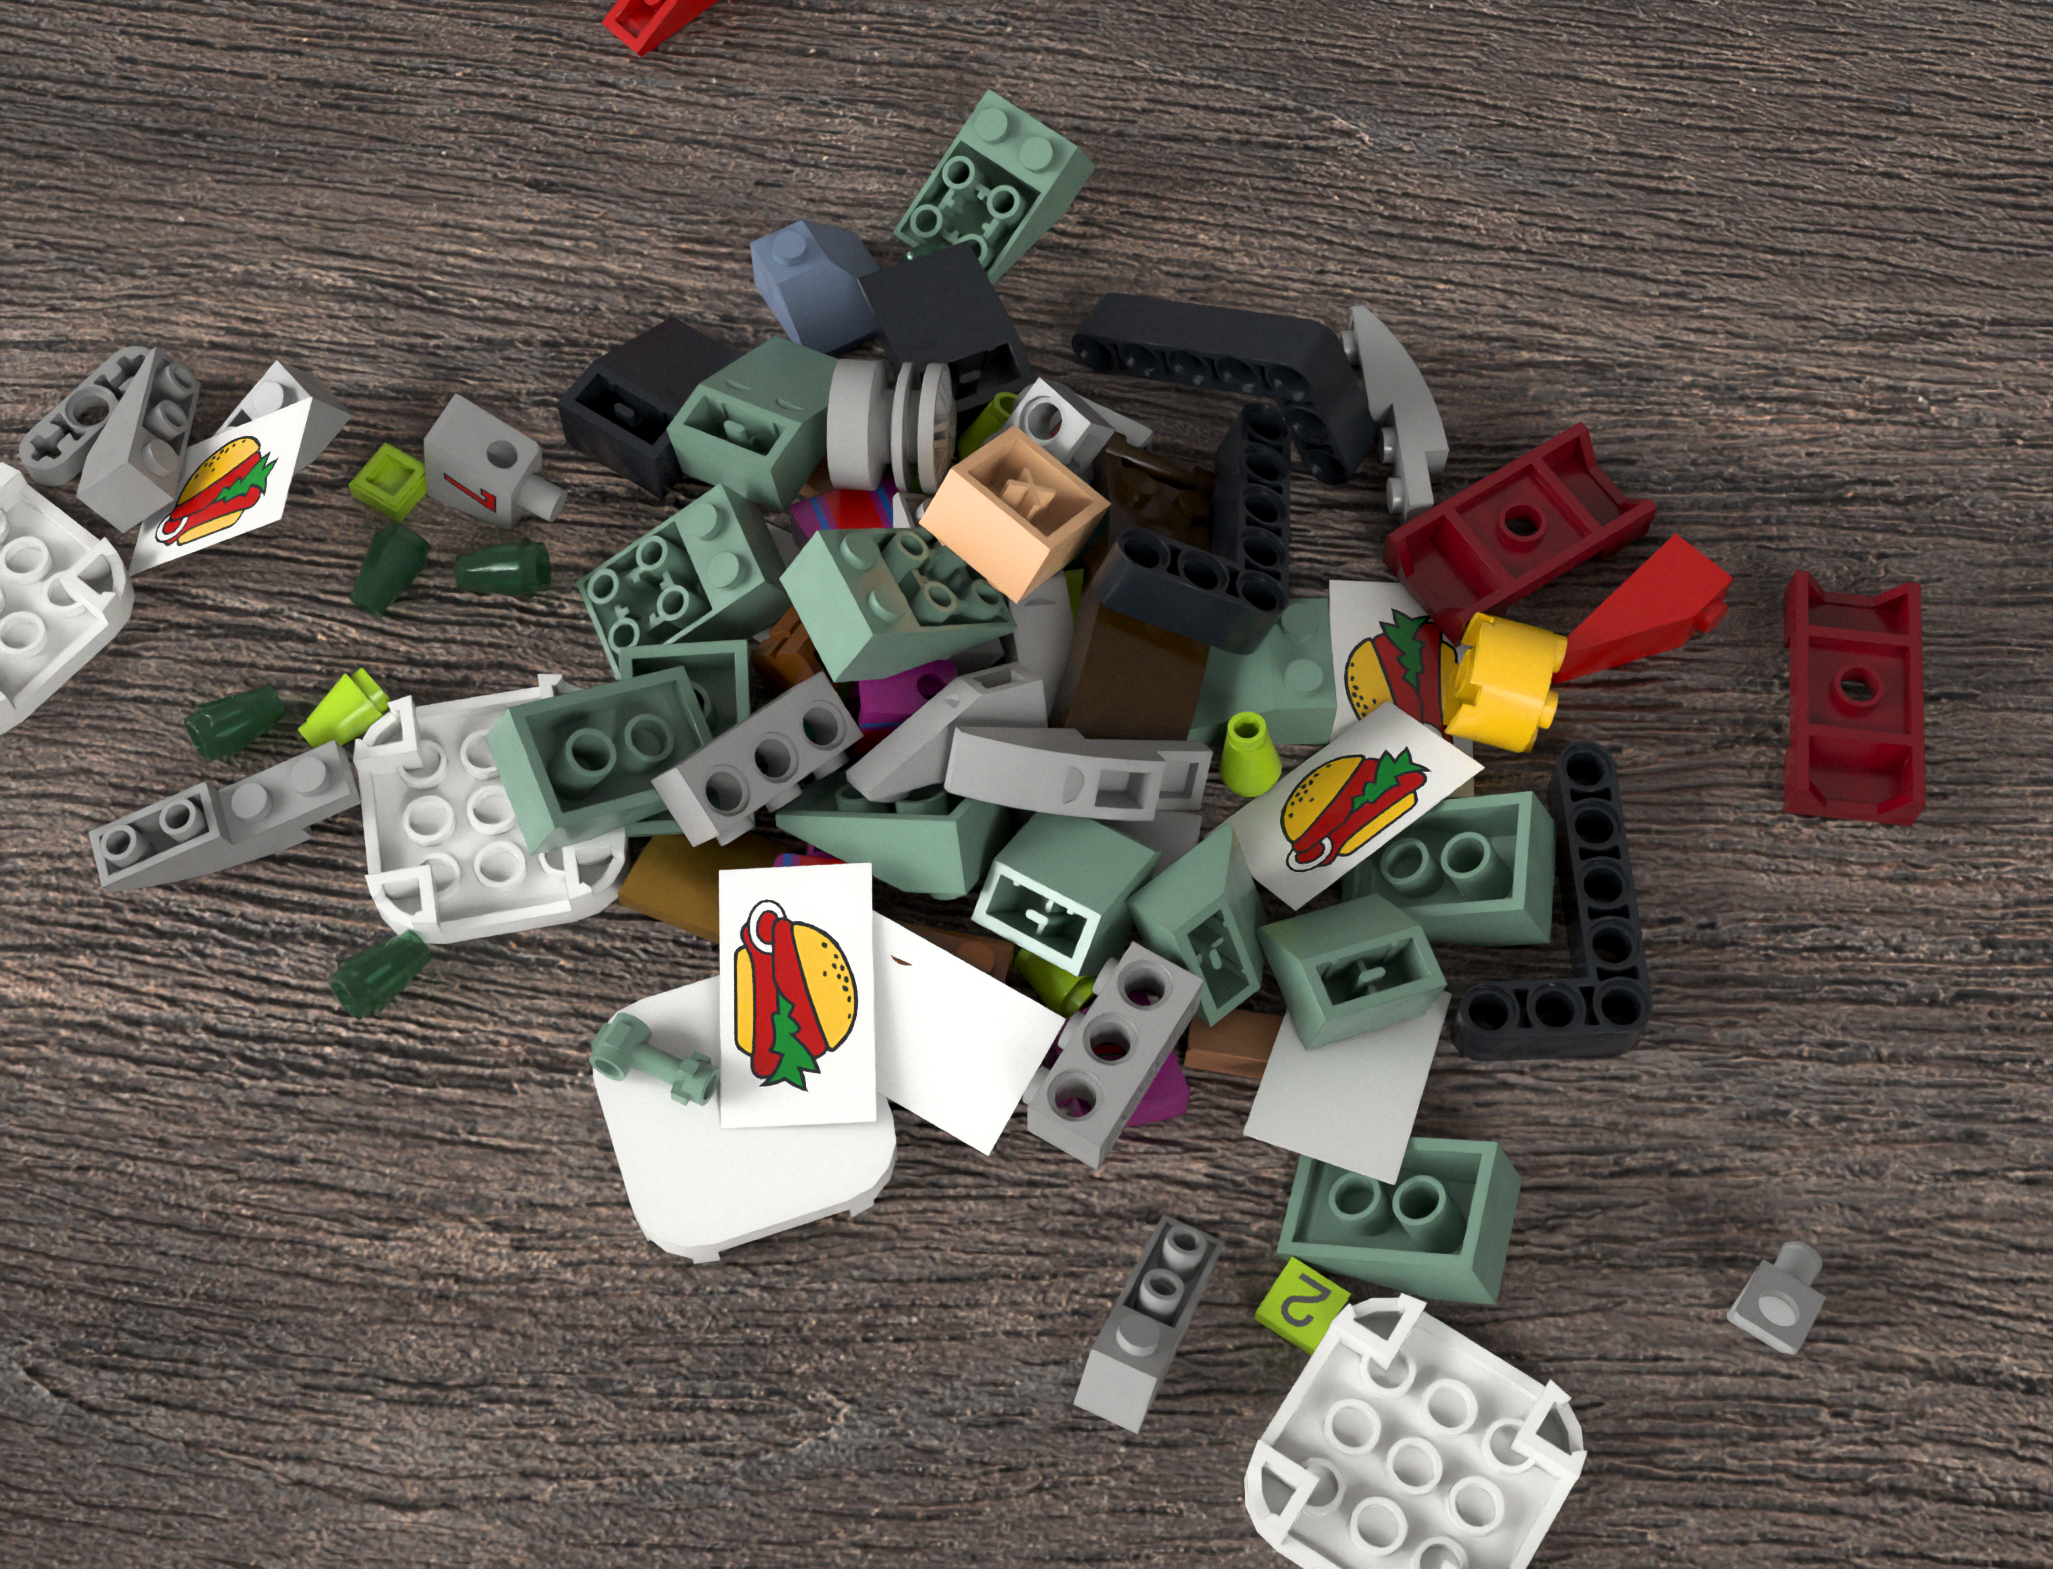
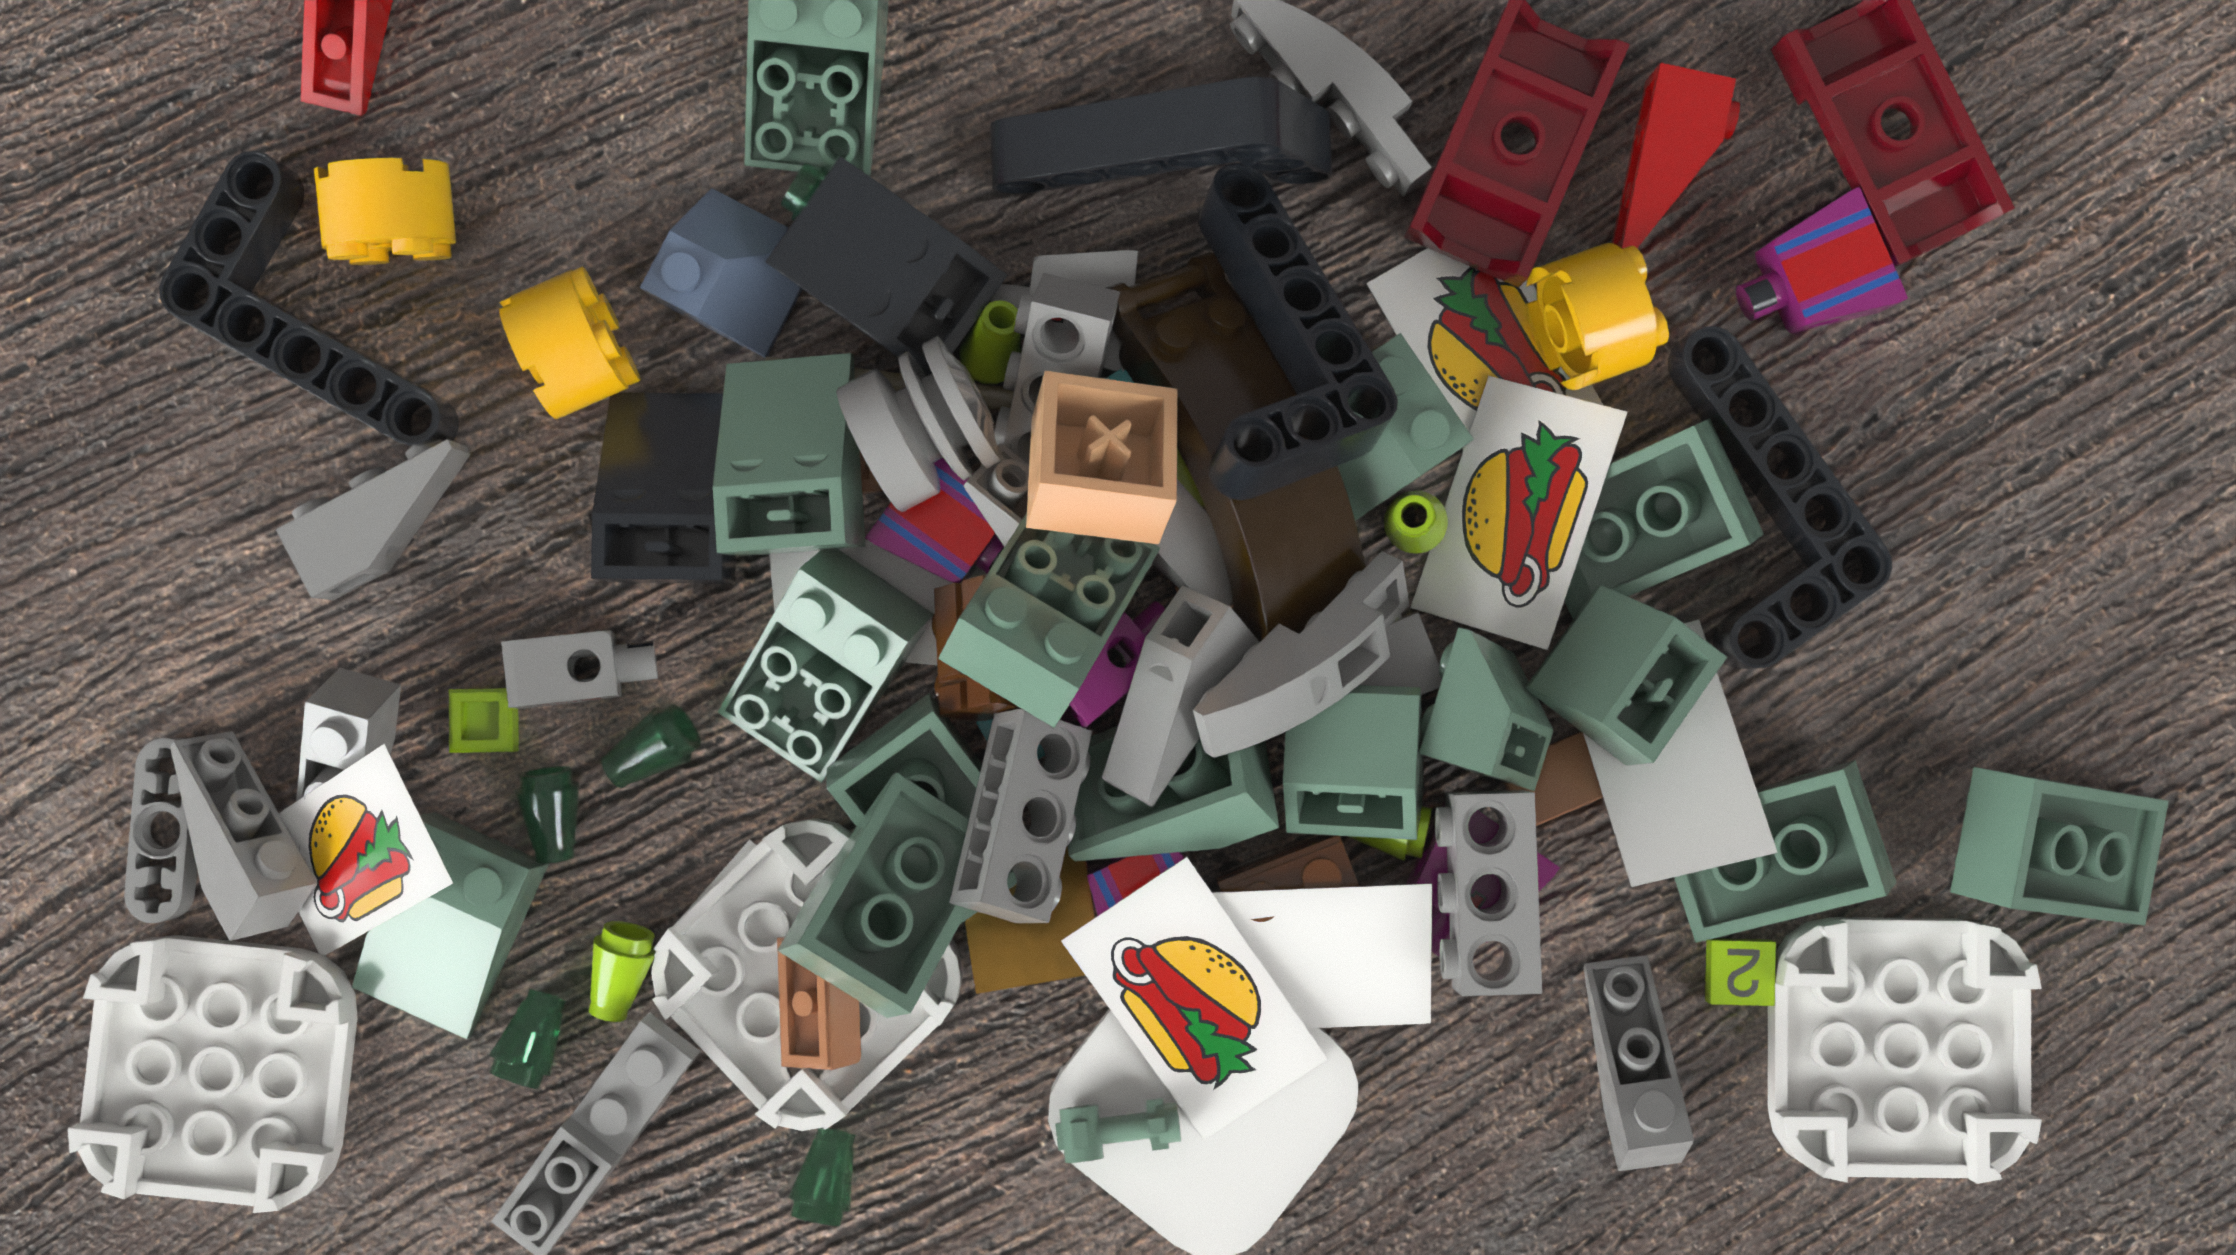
camera: 30 degrees left, 25 degrees up
(243, 603) = (452, 946): none -> slope
(423, 298) = (366, 529): none -> light grey slope
(444, 94) = (285, 336): none -> black beam
(476, 837) = (815, 1020): none -> nougat slope
(605, 102) = (384, 208): none -> yellow brick
(667, 253) = (567, 342): none -> yellow brick
(1676, 1371) = (2058, 847): none -> sand green slope
(1729, 772) = (1824, 270): none -> torso
(1778, 1299) = (2117, 744): light grey bracket -> none

